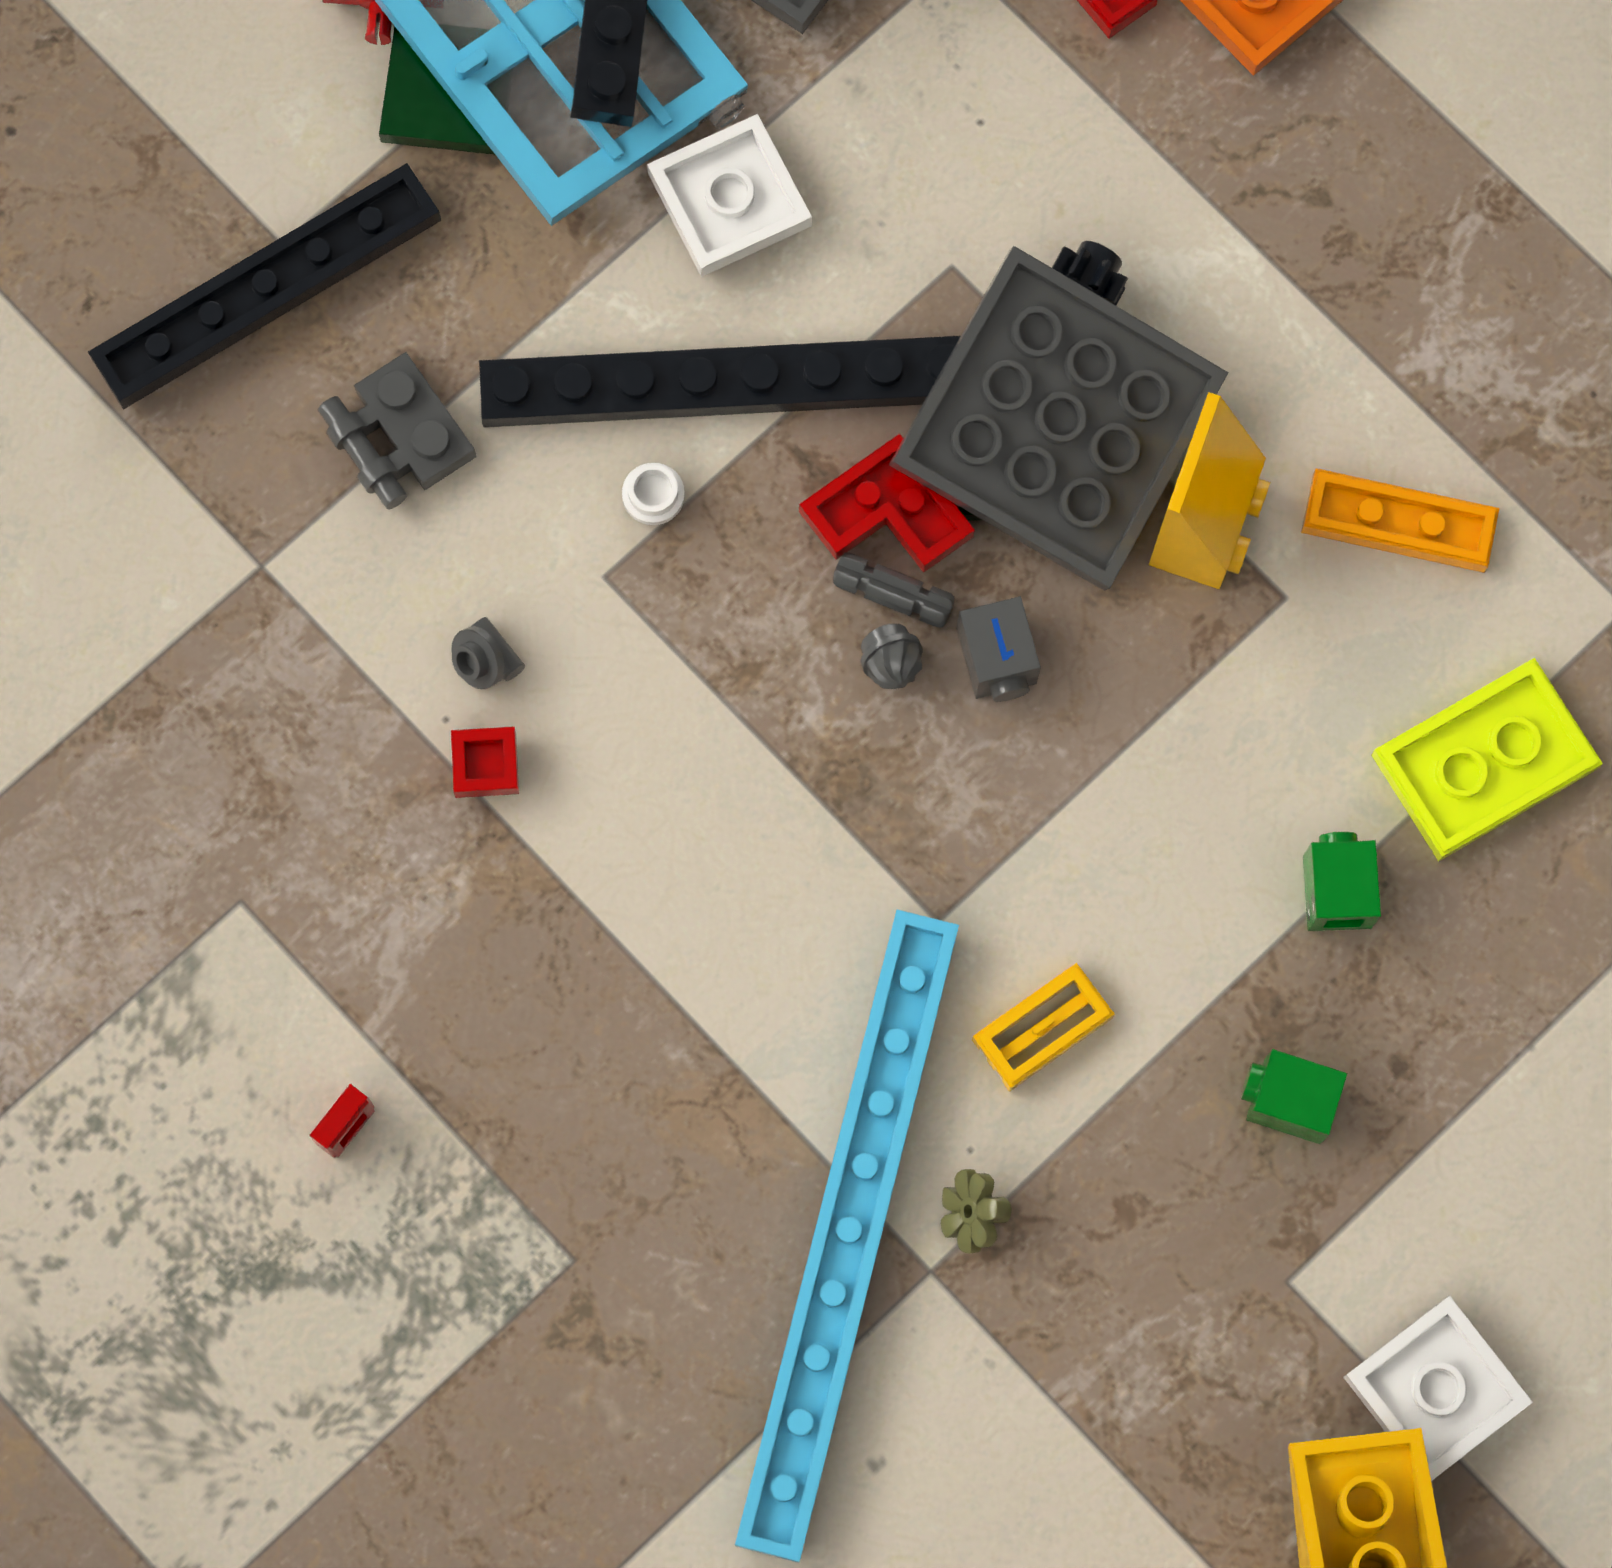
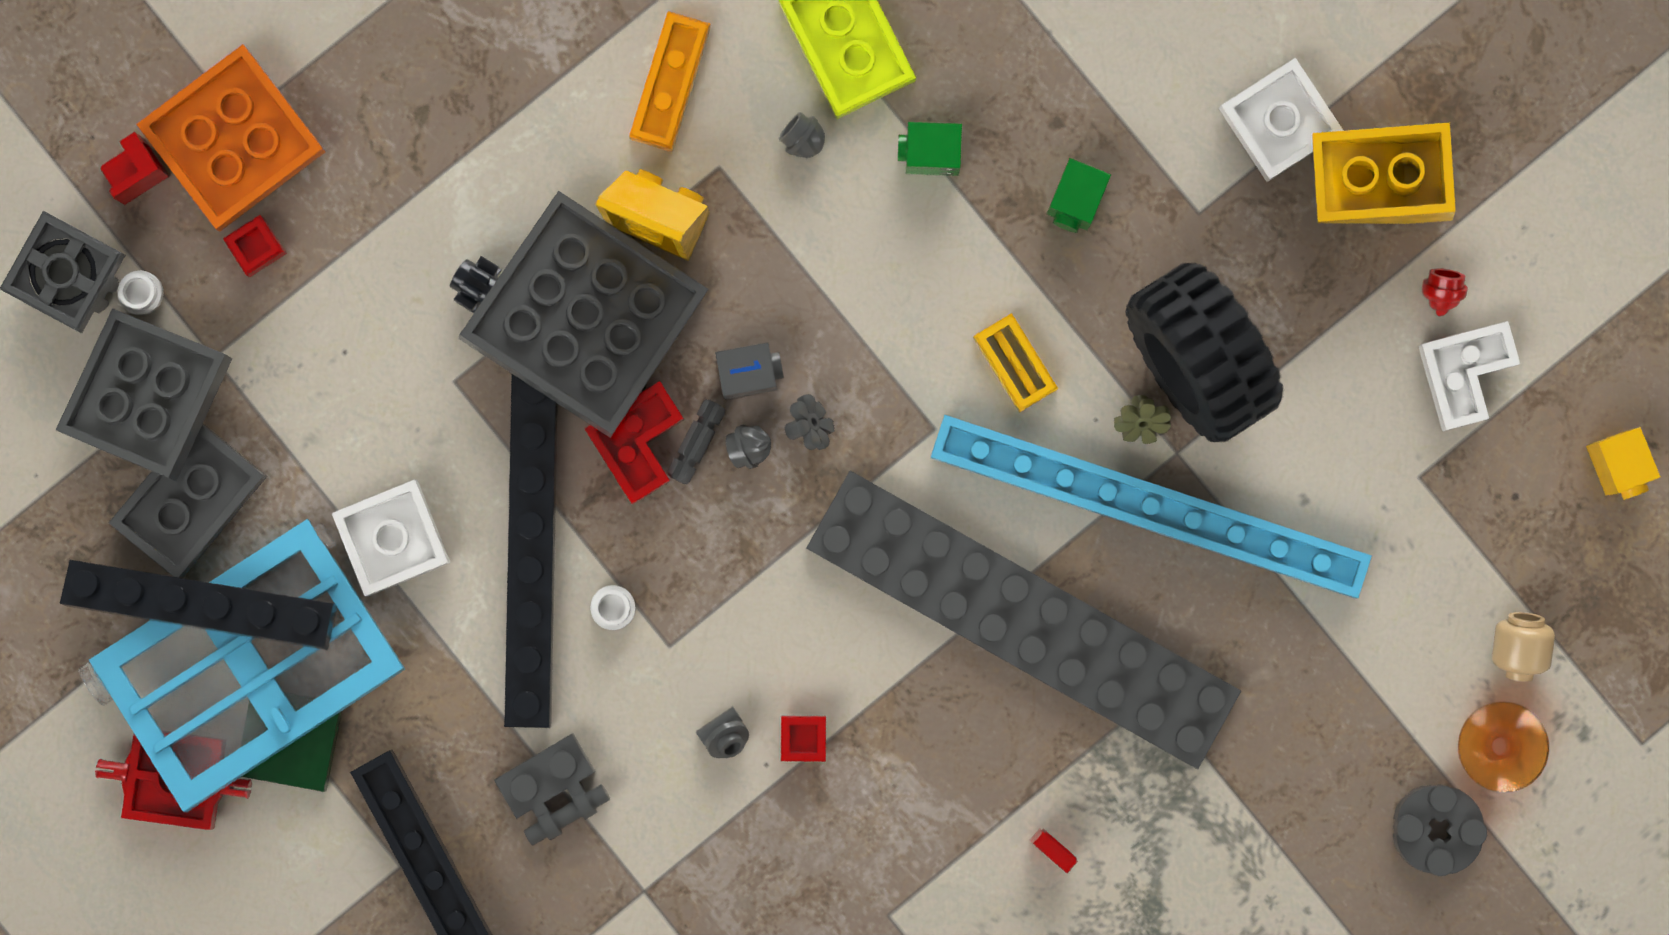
camera: 80 degrees left, 10 degrees up
(670, 1066) = (1023, 619): none -> dark grey plate
(932, 741) = (809, 423): none -> dark grey plant
(1078, 1273) = (1204, 352): none -> black tyre
(1339, 705) = (803, 136): none -> dark grey plate

